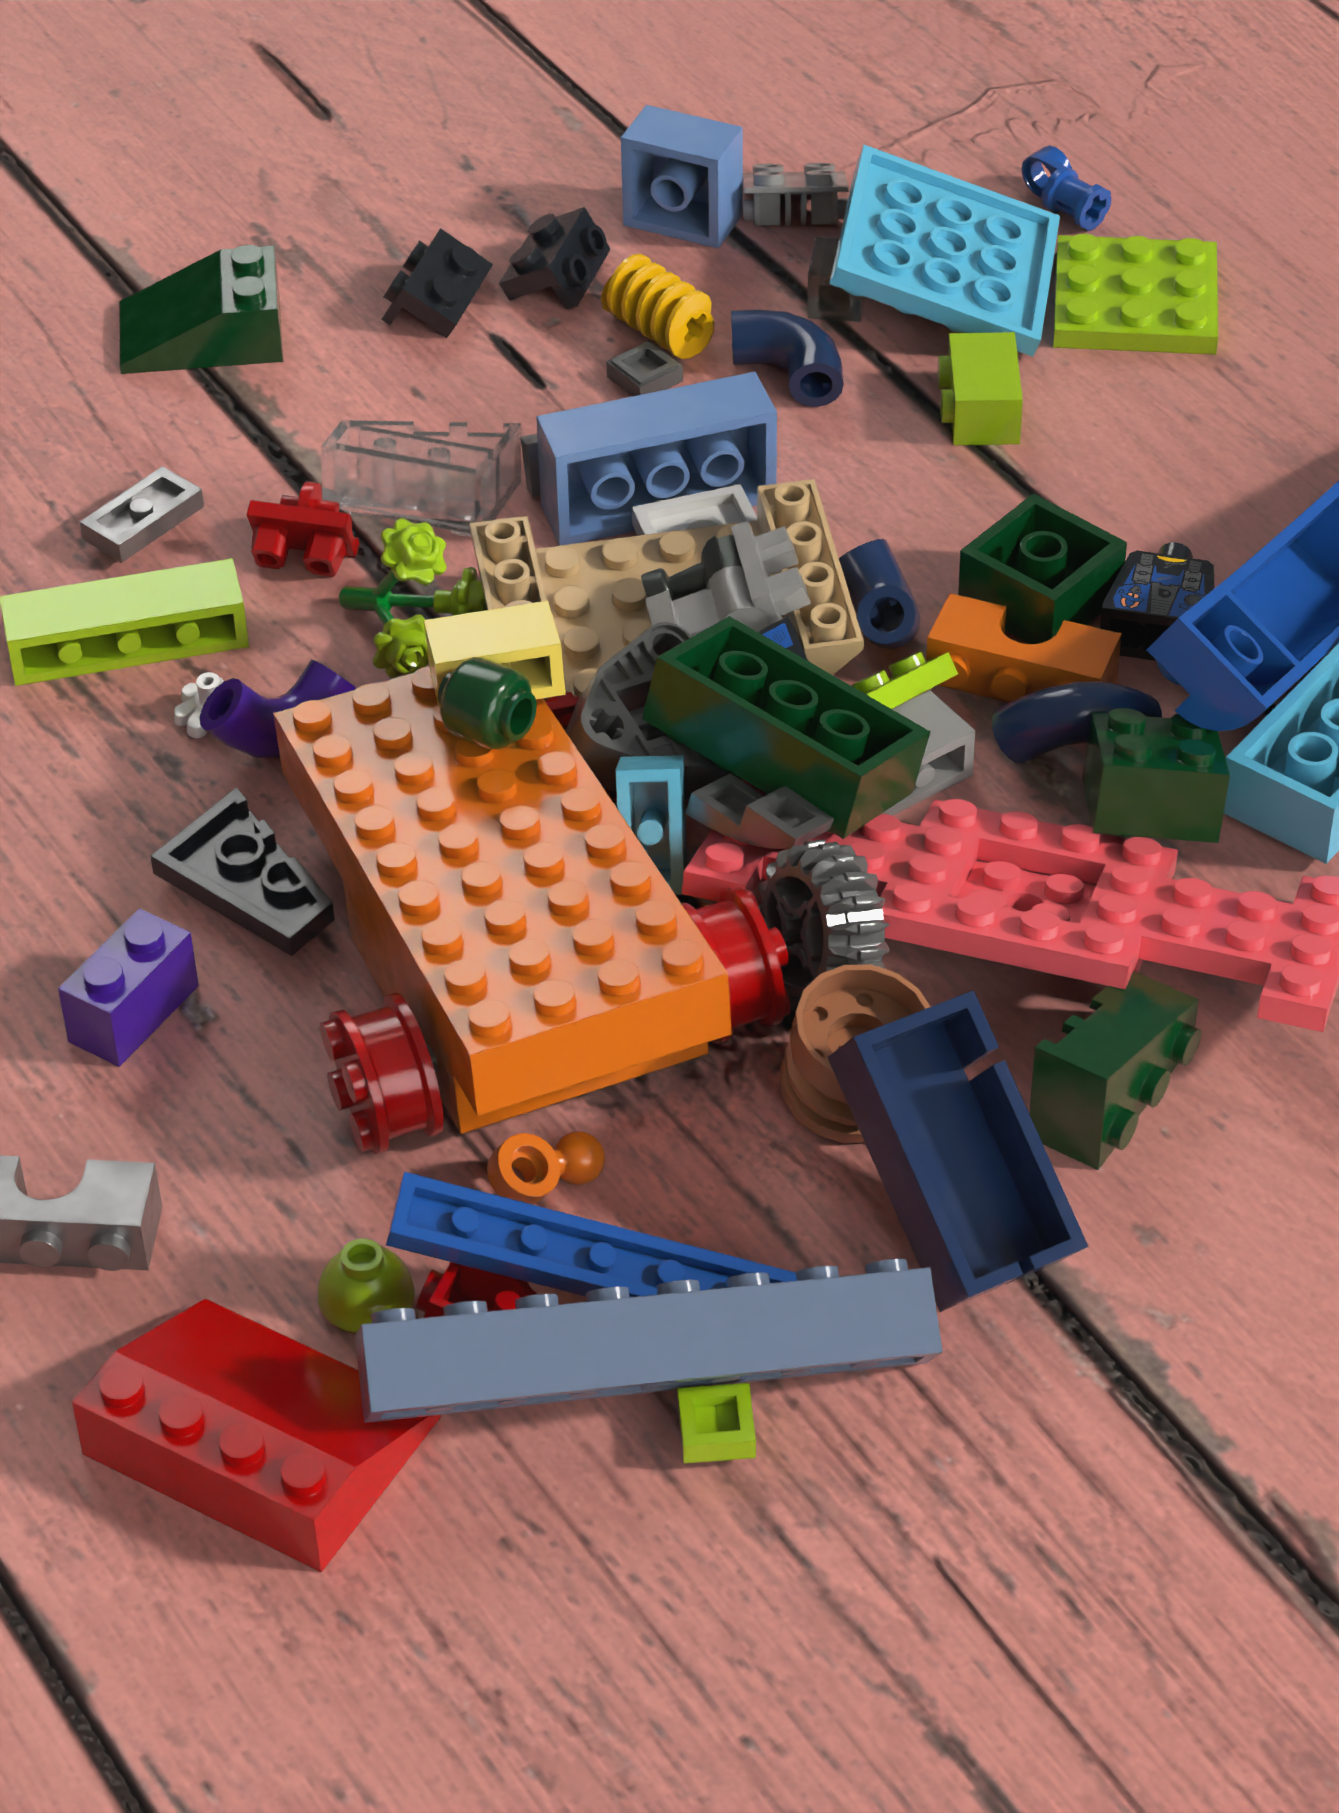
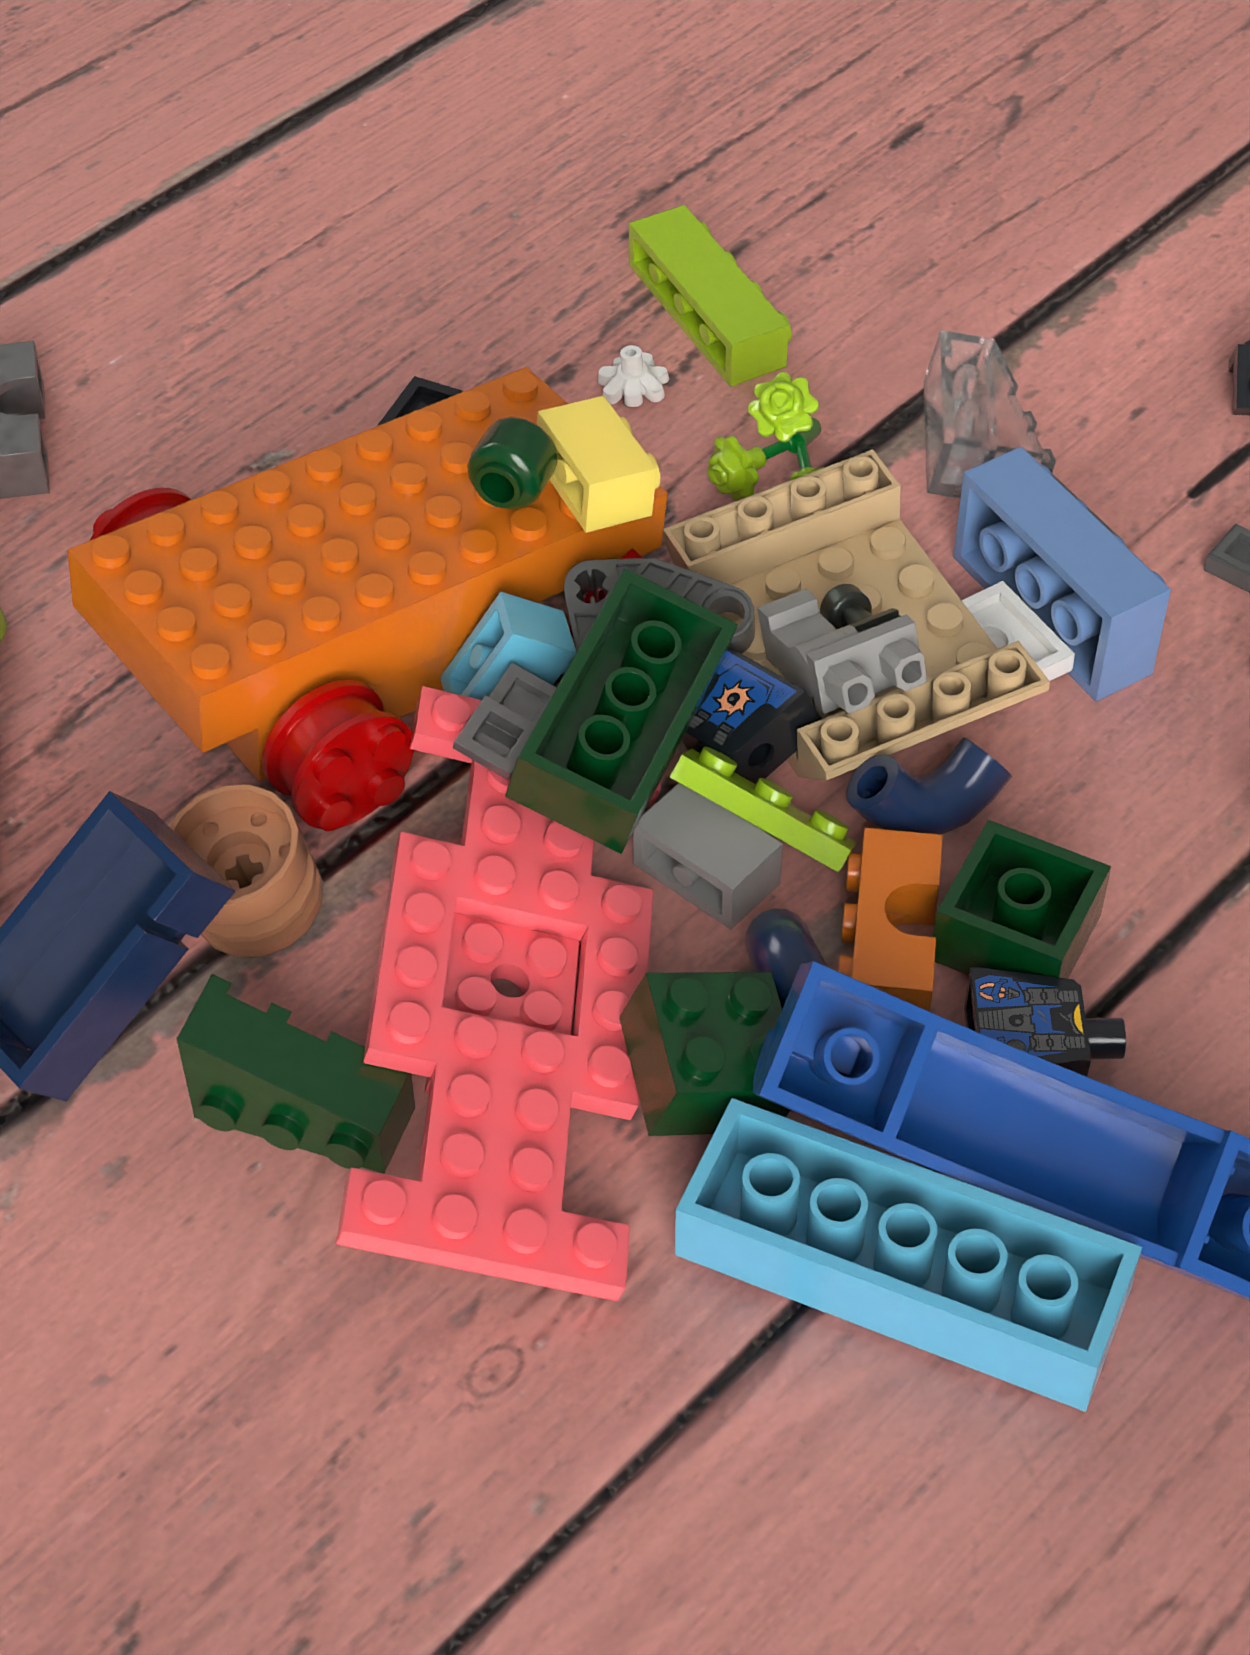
camera: 75 degrees right, 5 degrees up
(128, 987) = (256, 400): dark purple brick -> none
(141, 514) = (859, 272): flat silver plate -> none
(205, 315) = (1161, 250): dark green slope -> none
(246, 719) = (590, 376): dark purple cylinder -> none
(303, 525) = (869, 371): red hips -> none
(575, 1159) = (129, 724): orange plate -> none
(824, 911) = (396, 791): dark grey gear -> none

